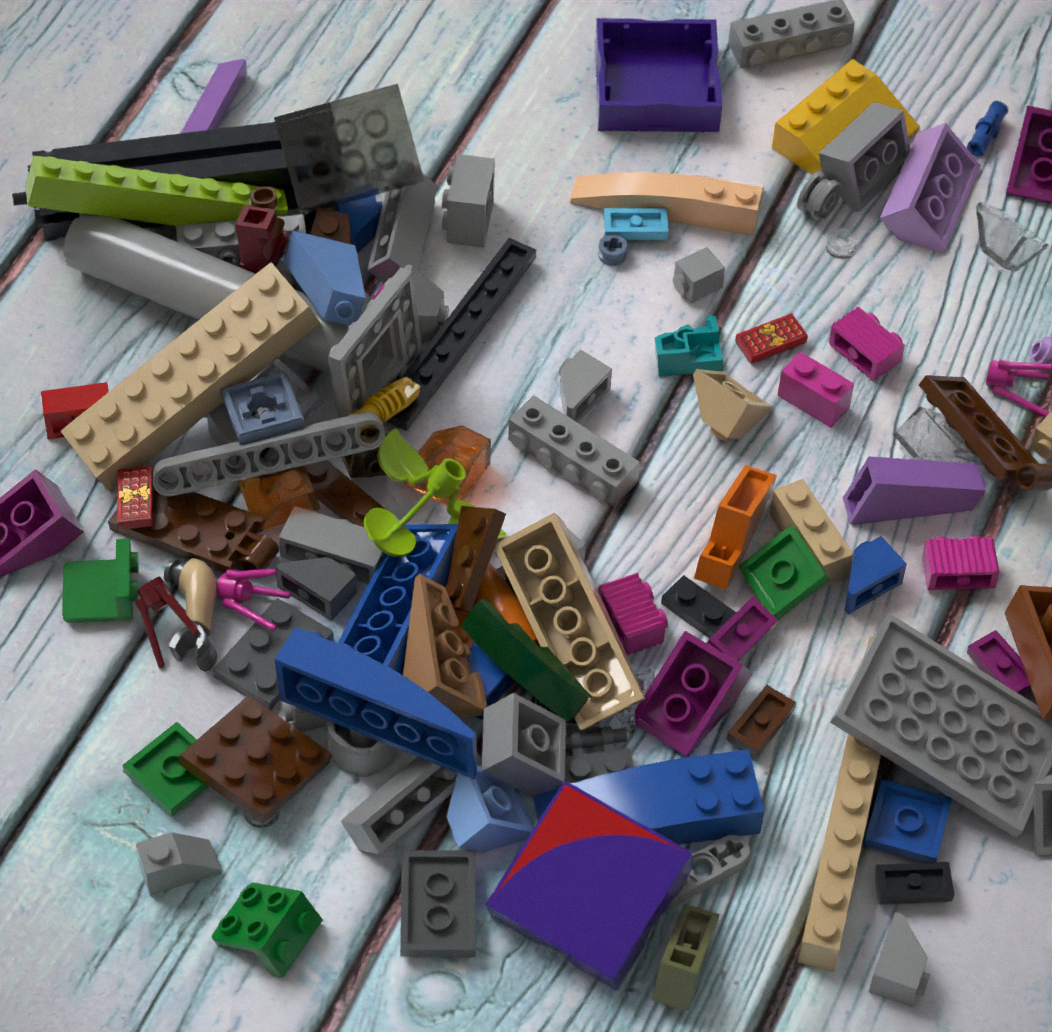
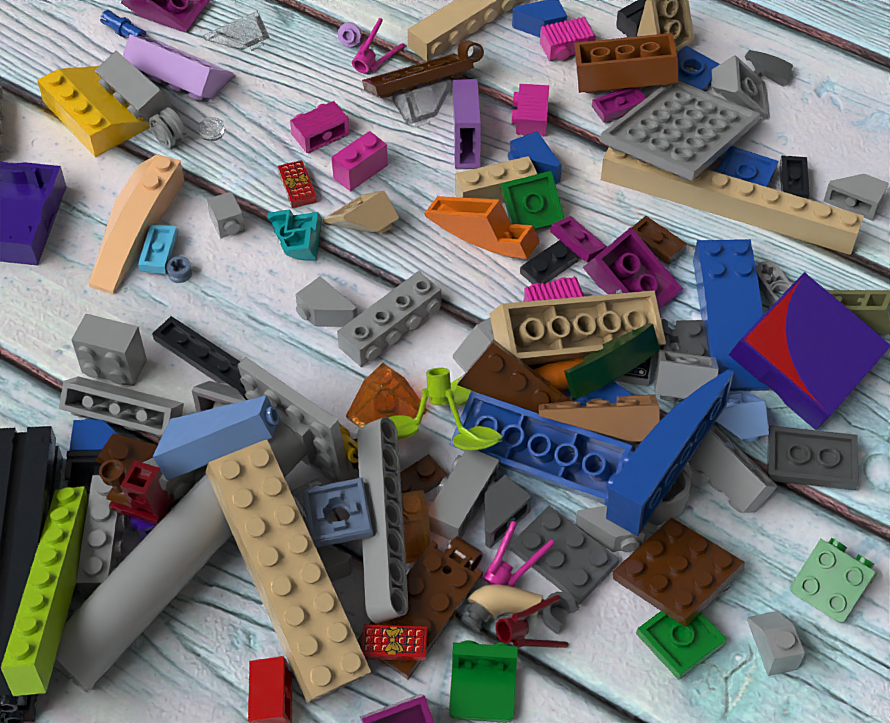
camera: 80 degrees left, 0 degrees up
(349, 149) = (59, 409): clear smoke slope -> none

